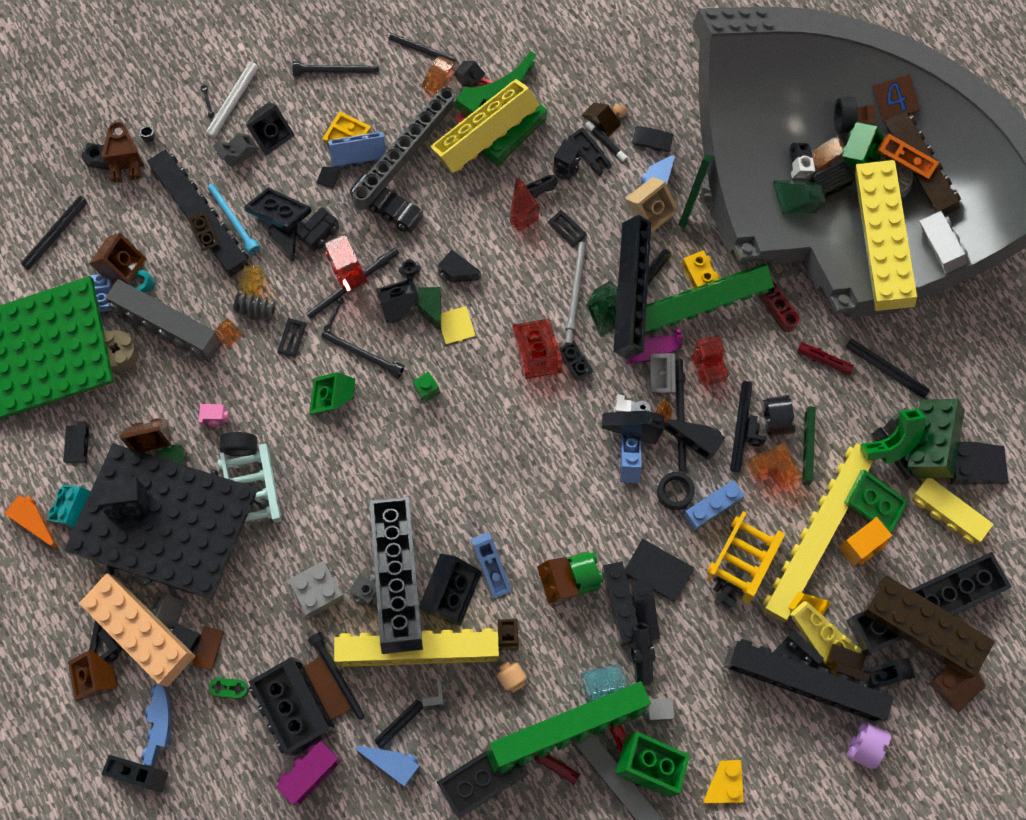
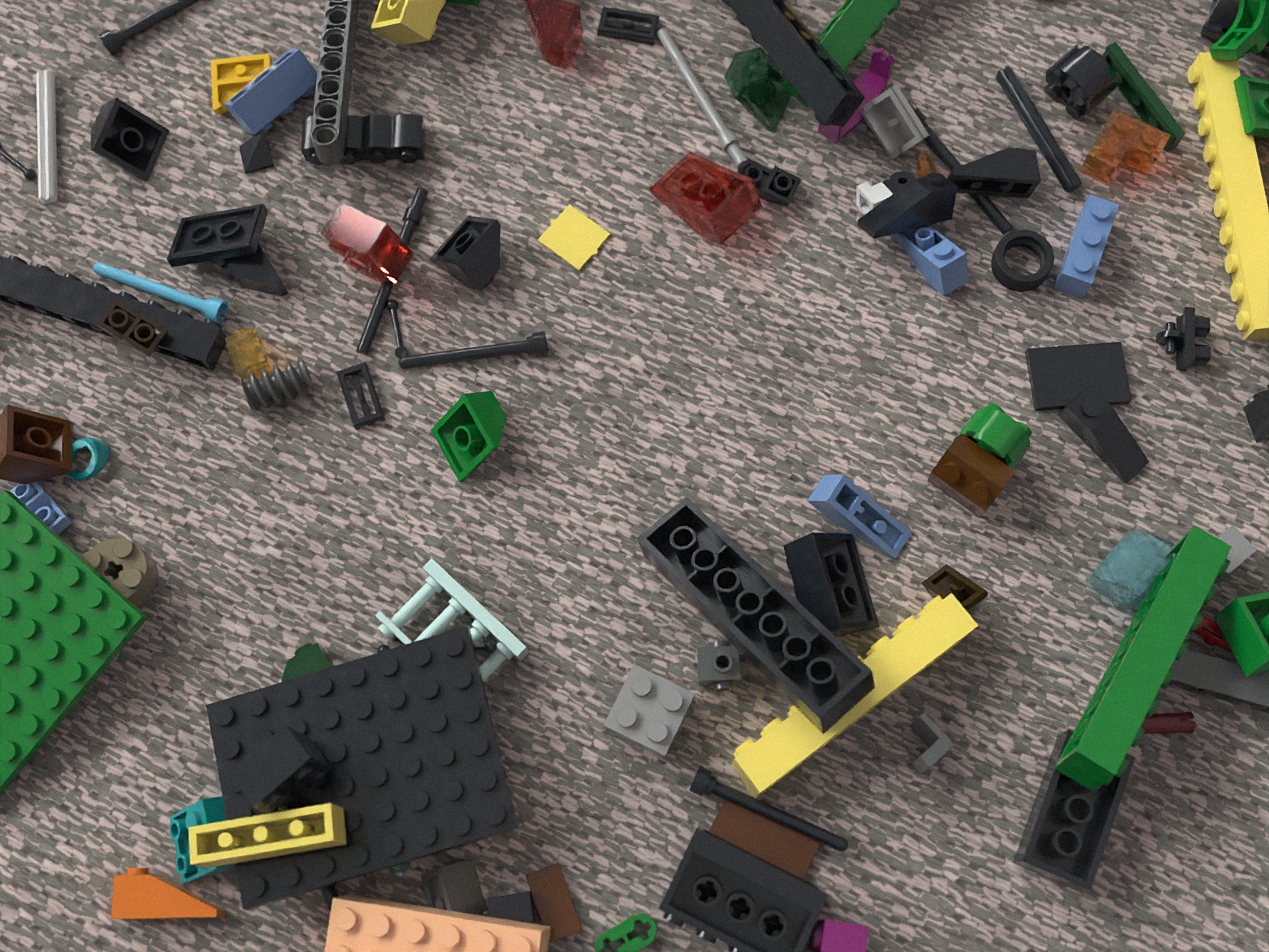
camera: 30 degrees left, 0 degrees up
(76, 443) = (149, 743): black panel -> none
(96, 523) = (267, 835): none -> light yellow brick
(147, 436) = (250, 661): reddish brown slope -> none
(163, 320) = (158, 486): dark grey brick -> none
(213, 415) = (325, 570): bright pink brick -> none
(228, 332) = (264, 445): clear orange slope -> none
(236, 150) = (101, 195): dark grey brick -> none
(238, 444) = (392, 585): black tyre -> none
(318, 229) = (293, 229): black brick -> none
(395, 764) = (941, 877): medium blue slope -> none
(399, 723) = (899, 817): black axle -> none
(409, 264) = (457, 196): black plate -> none
(426, 387) = (597, 339): green brick -> none
(430, 304) = (523, 231): dark green slope -> none
(457, 269) = (524, 162): black slope -> none
(511, 676) = (1002, 645): light nougat head -> none
(620, 601) = (1073, 451): black brick -> none
(643, 653) = (1154, 492): black piece -> none
(709, 358) = (938, 70): clear red brick -> none
(751, 431) = (1059, 125): black bracket -> none
(756, 572) = (1203, 266): yellow fence -> none

